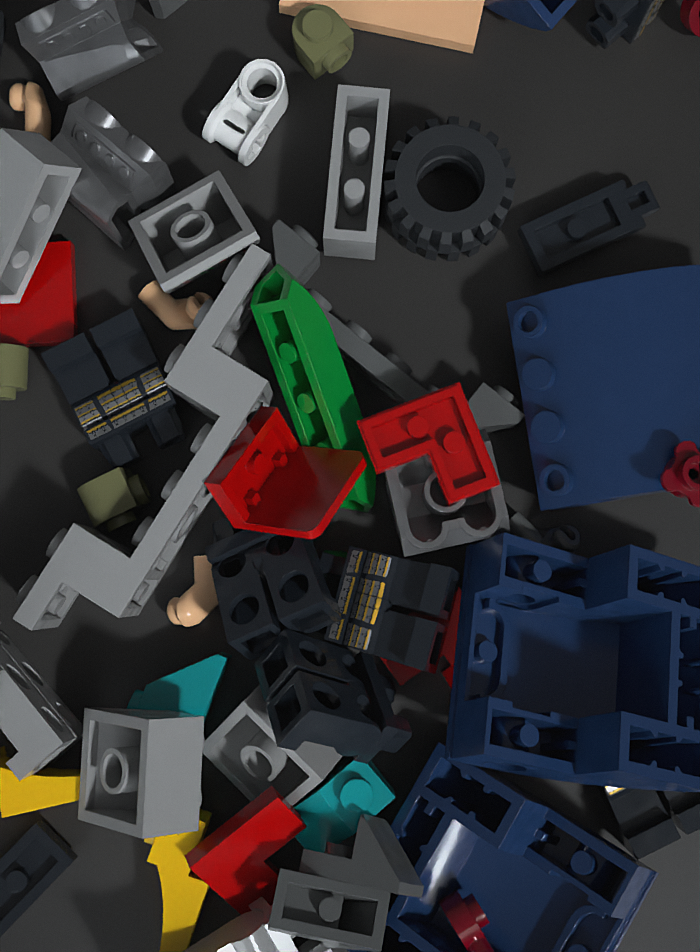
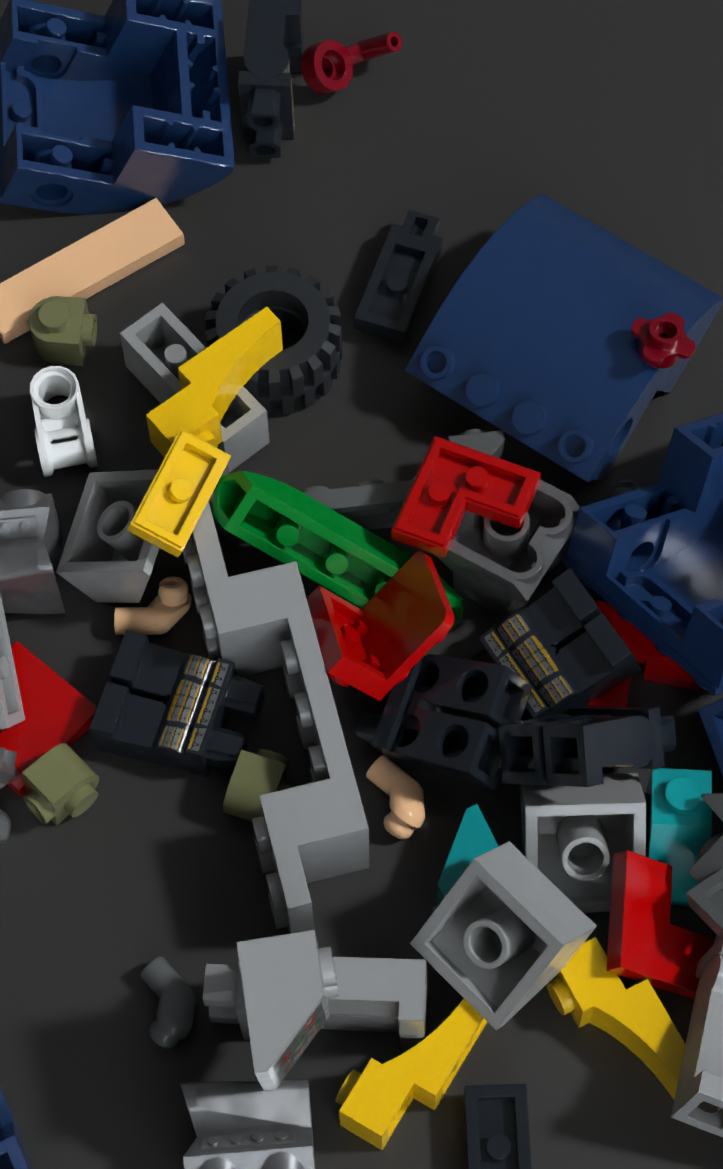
camera: 45 degrees left, 20 degrees down
(232, 254) = (179, 493): none -> yellow plate
(306, 203) = (213, 381): none -> yellow slope

